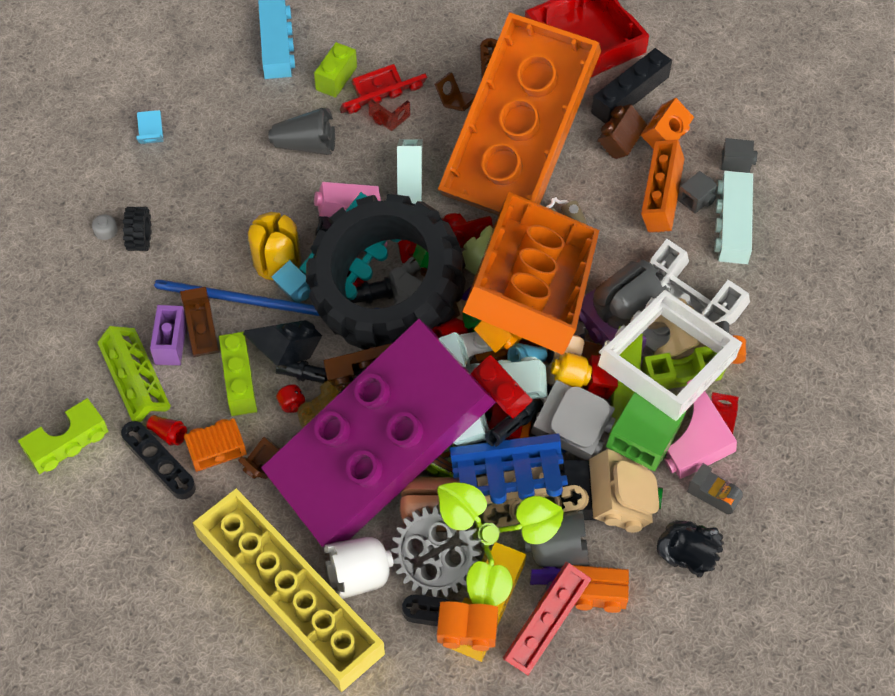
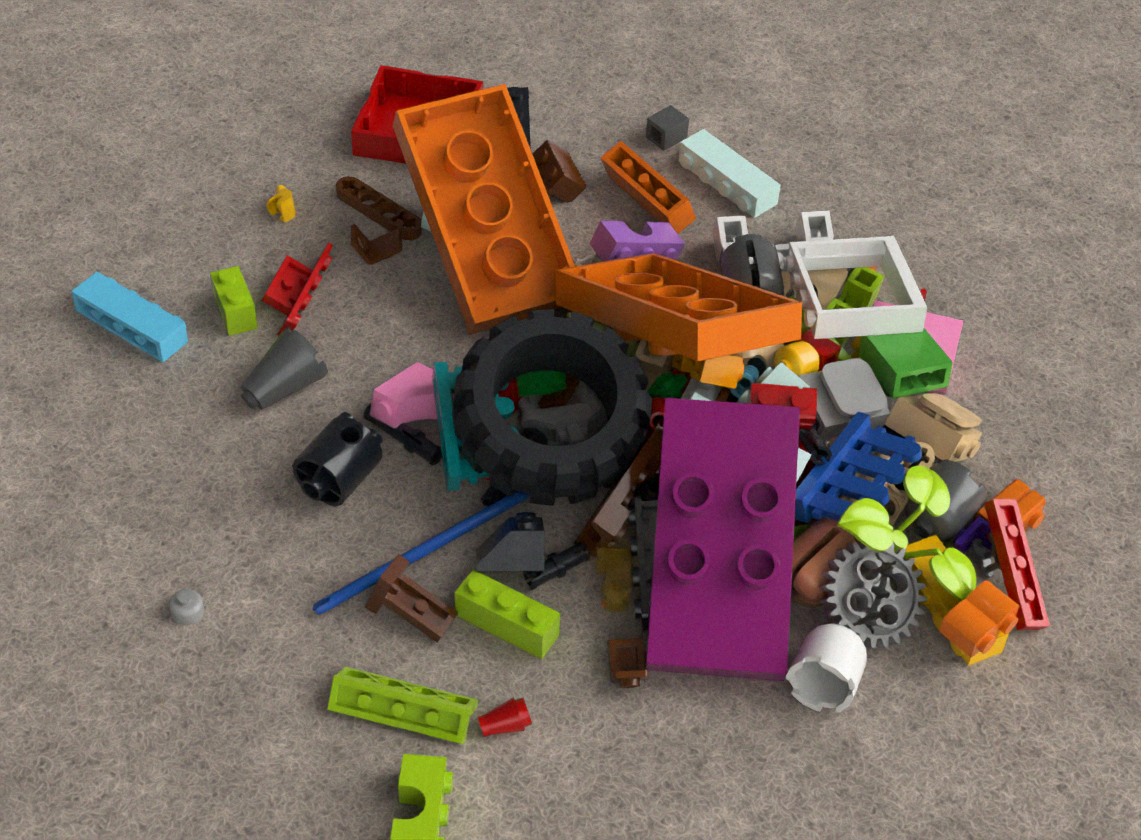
camera: 50 degrees left, 10 degrees down
(137, 228) = (235, 574): black tyre -> none
(149, 127) = (110, 484): medium azure bracket -> none
(156, 461) = (532, 745): black beam -> none
(168, 335) = (399, 636): medium lavender brick -> none
(215, 444) = (568, 690): orange brick -> none
(258, 200) = (338, 460): none -> black cylinder
(273, 243) = (399, 484): yellow cylinder -> none
(289, 589) = (799, 736): light yellow brick -> none
(290, 398) = (580, 594): red piece -> none
(292, 282) = (450, 499): medium azure brick -> none
(386, 118) = (332, 306): clear red bracket -> none
(410, 168) = (428, 325): light aqua arch -> none
(426, 603) = (912, 646): black beam -> none
(439, 30) = (282, 203): none -> yellow piece
(584, 207) = (616, 241): none -> medium lavender arch
(668, 123) = (586, 141): orange brick -> none
(690, 546) = (1026, 426): black hair -> none
(697, 192) = (678, 172): dark grey brick -> none
(715, 490) = (982, 376): dark grey leg -> none

